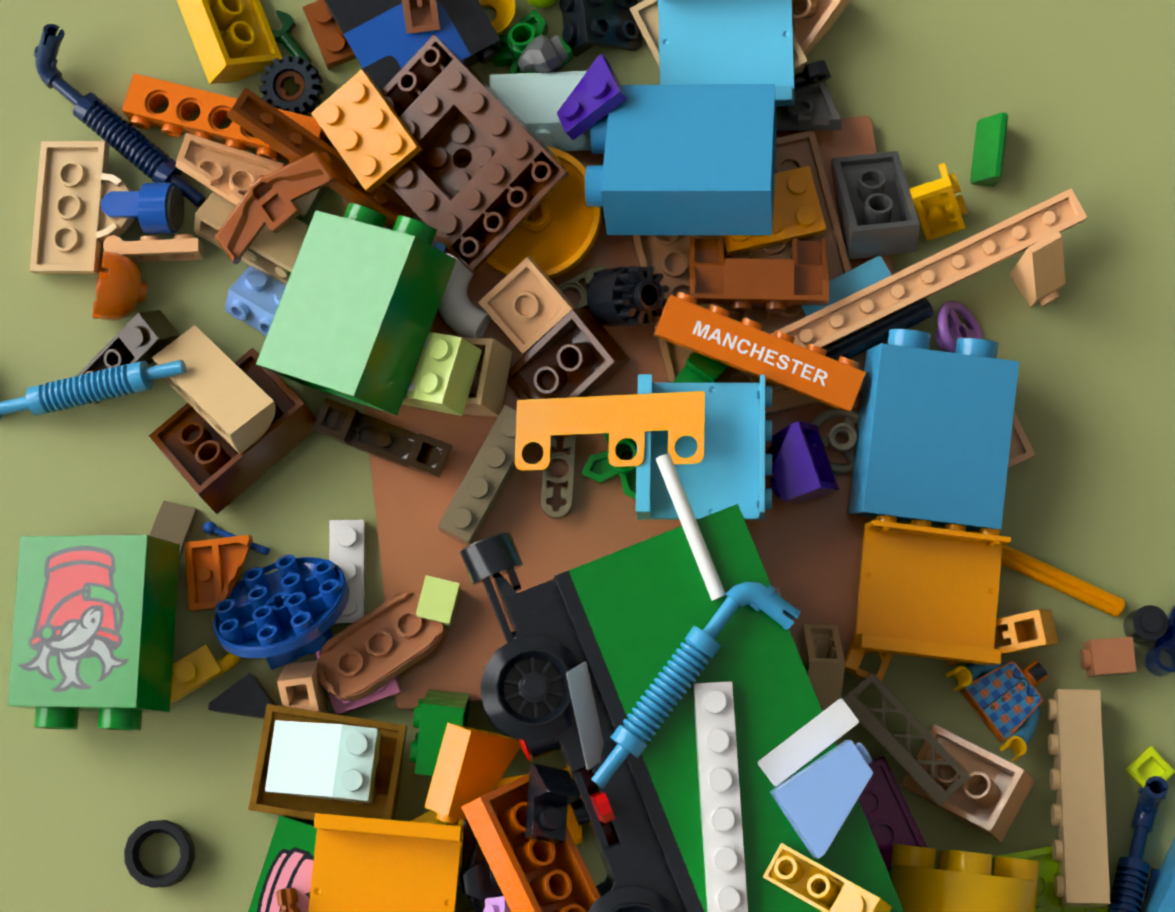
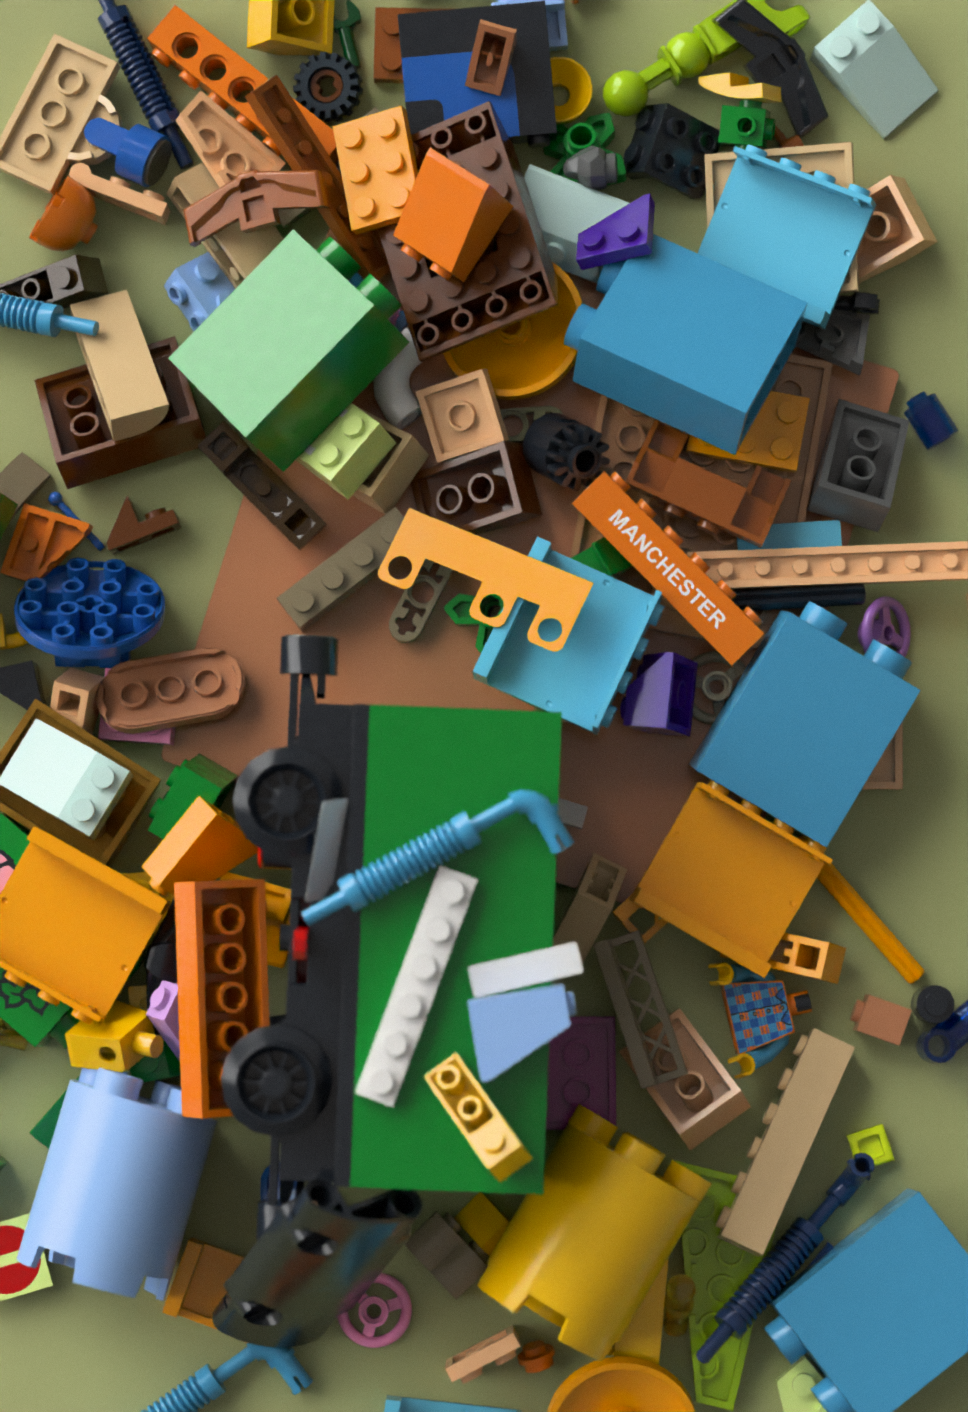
camera: 25 degrees right, 5 degrees up
(286, 527) = (131, 532): none -> reddish brown slope
(348, 553) = (179, 586): white plate -> none
(438, 600) = (246, 671): yellowish green panel -> none
(445, 138) = (449, 217): none -> orange slope
(547, 803) = (258, 914): black slope -> none
(690, 526) = (505, 714): white bar -> none
(913, 143) = (930, 419): none -> clear blue brick
(938, 206) = (924, 495): yellow bracket -> none

